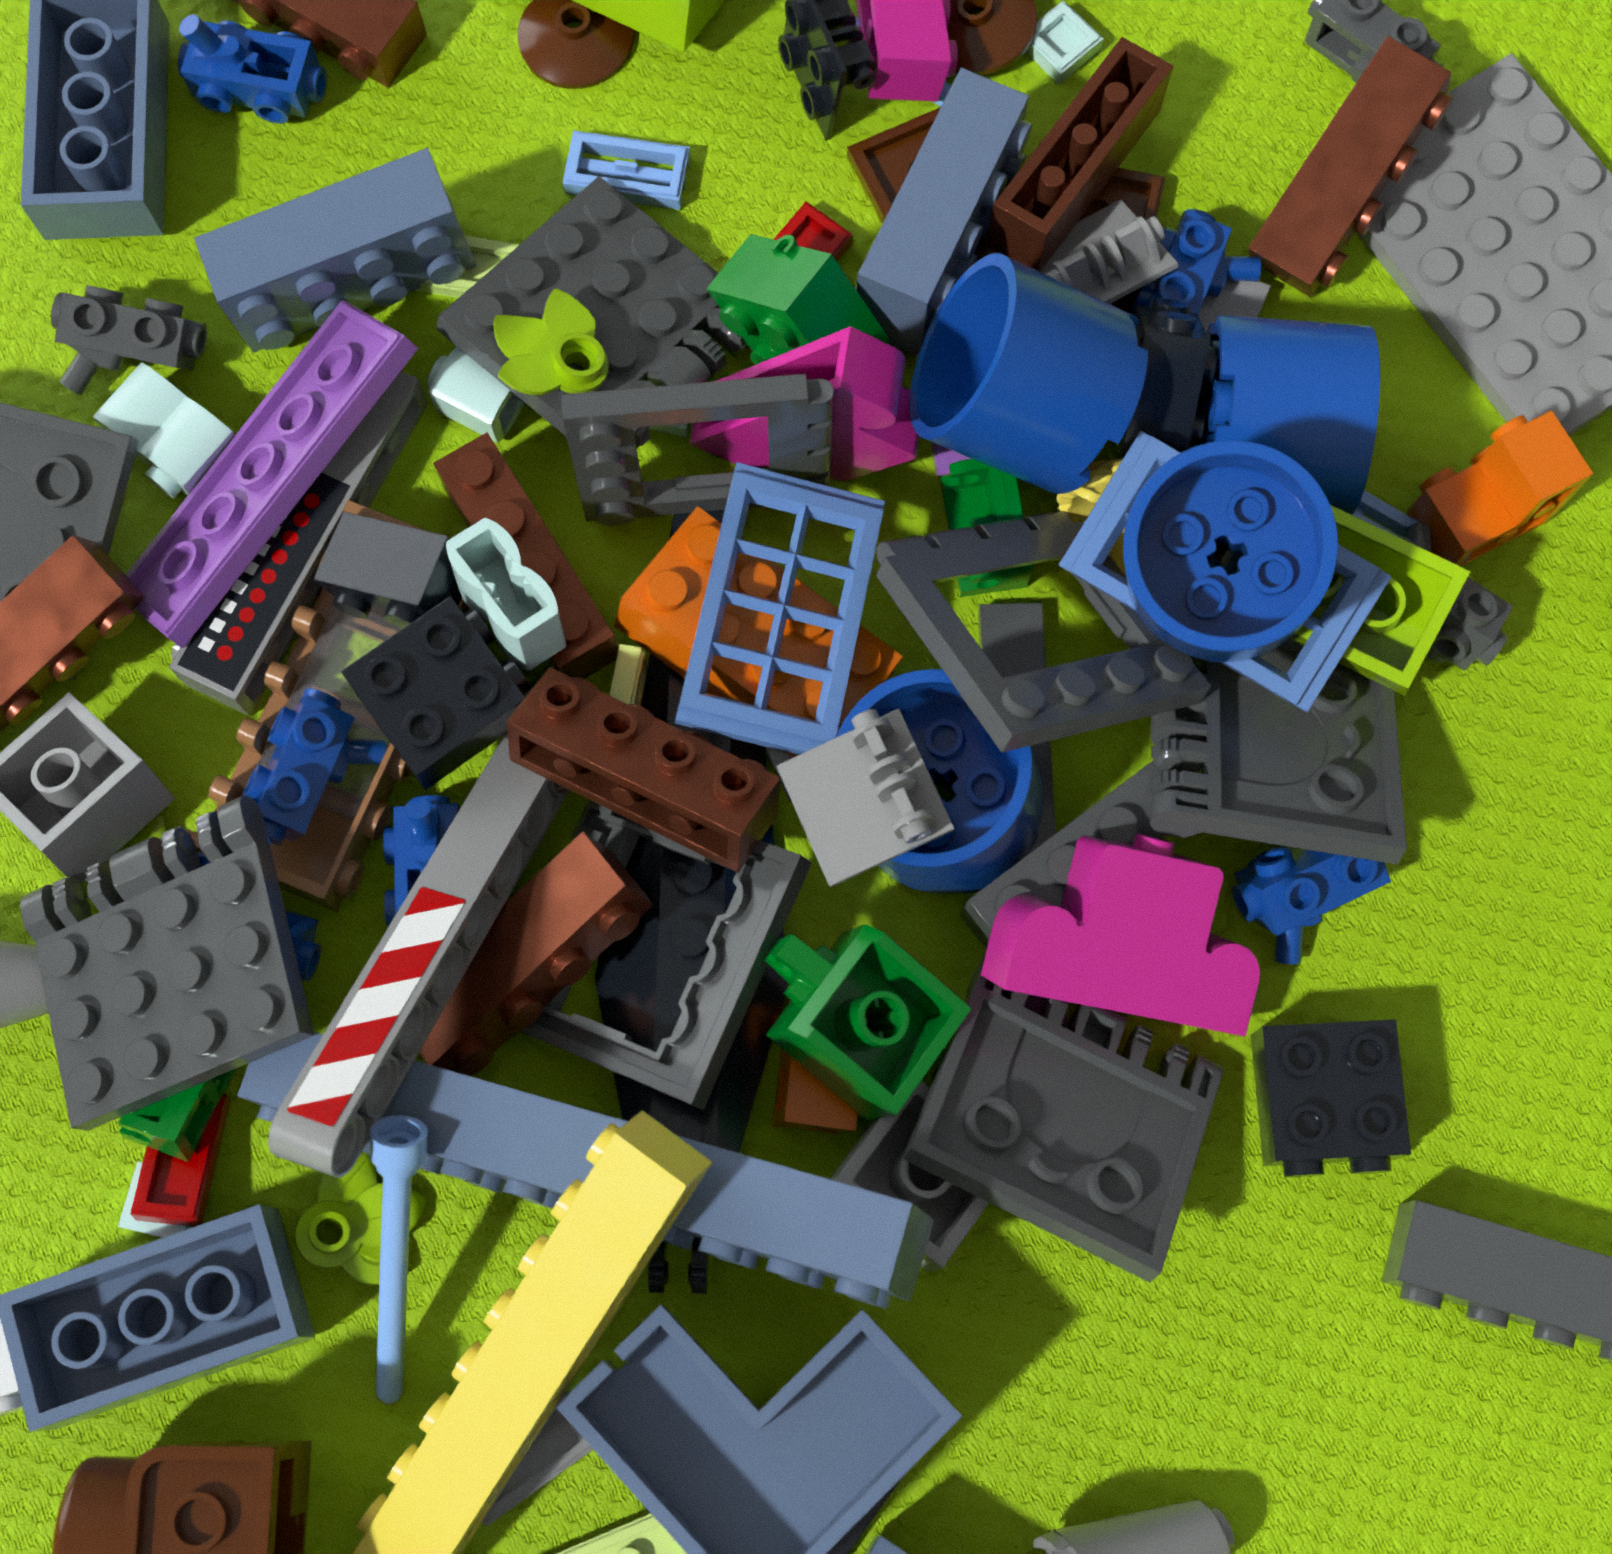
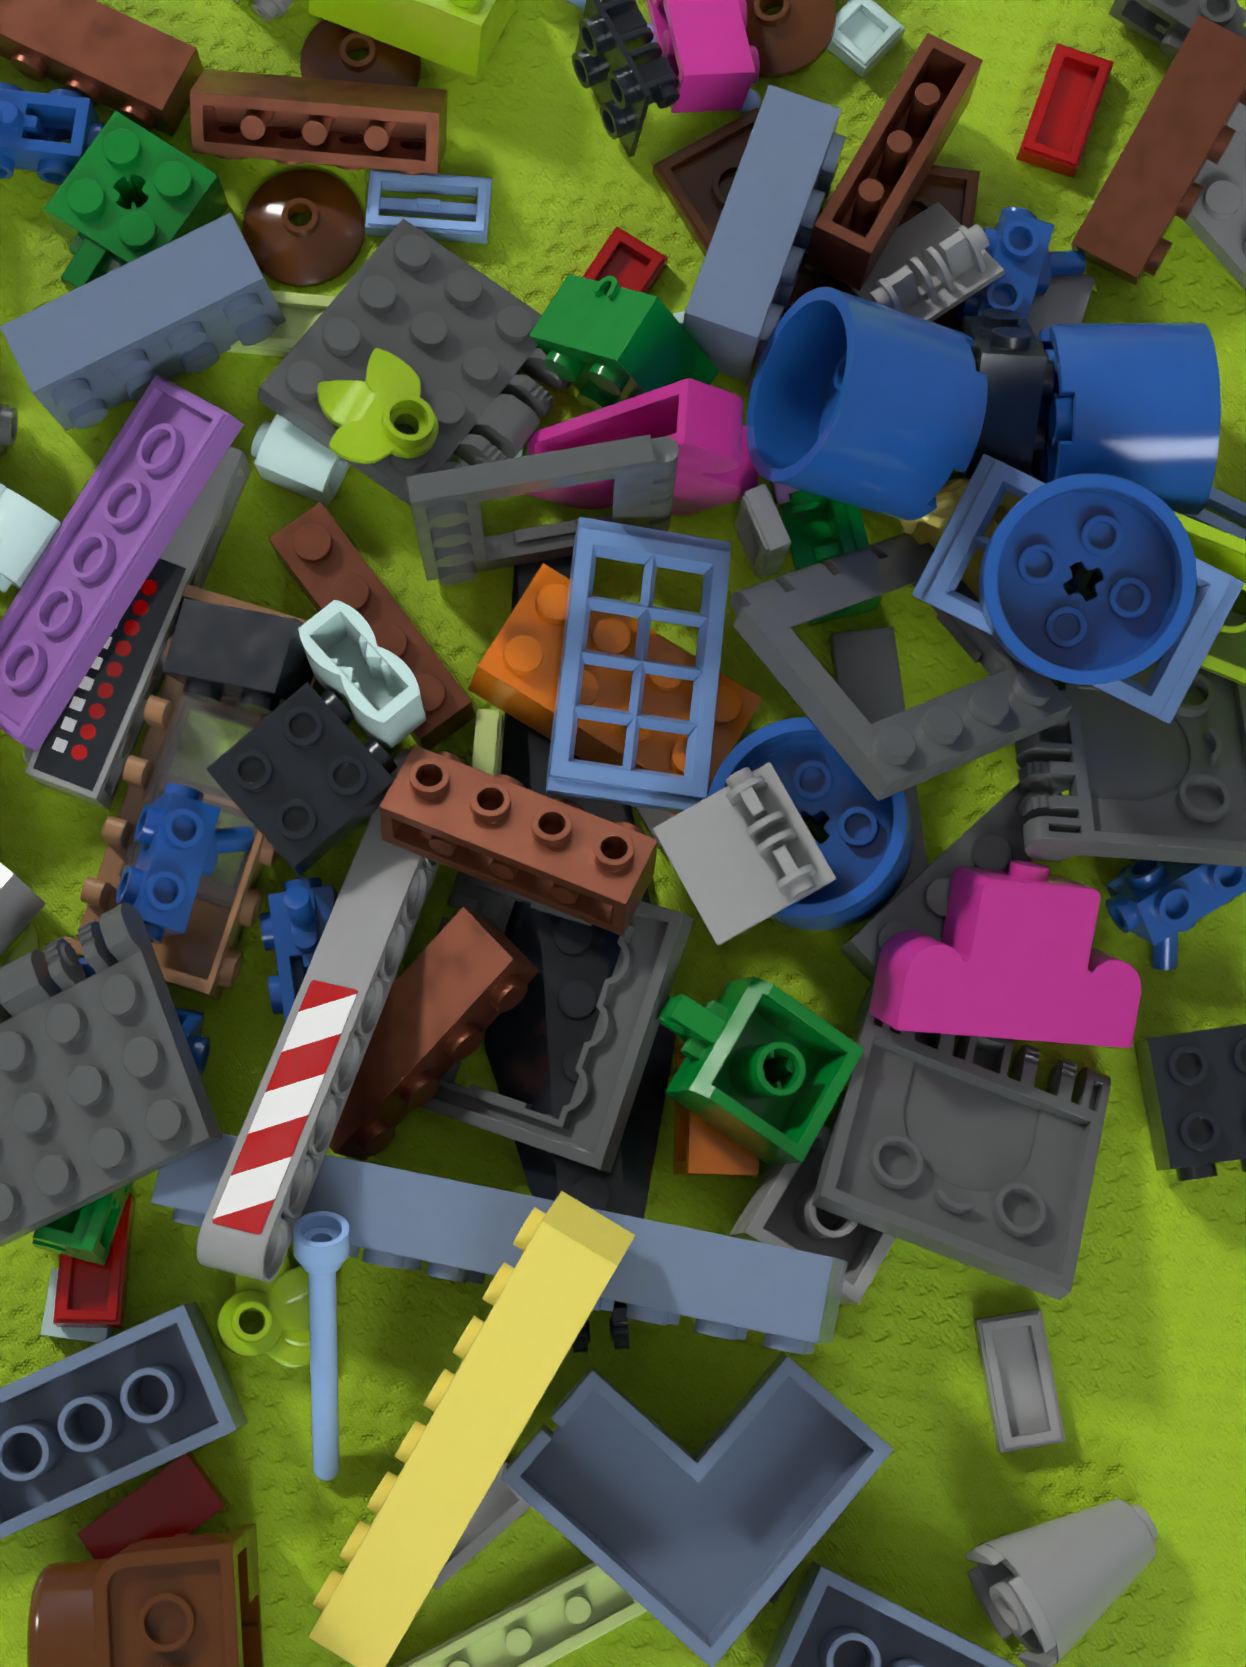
camera: 10 degrees left, 5 degrees up
(228, 1409) = (165, 1505): none -> red tile
(335, 131) = (102, 194): none -> green hinge
(509, 202) = (310, 252): none -> reddish brown dish
(527, 80) = (318, 121): none -> copper brick
(917, 493) = (761, 532): none -> light grey tile
(1105, 1368) = (1019, 1380): none -> light grey tile
(1253, 128) = (1065, 110): none -> red tile

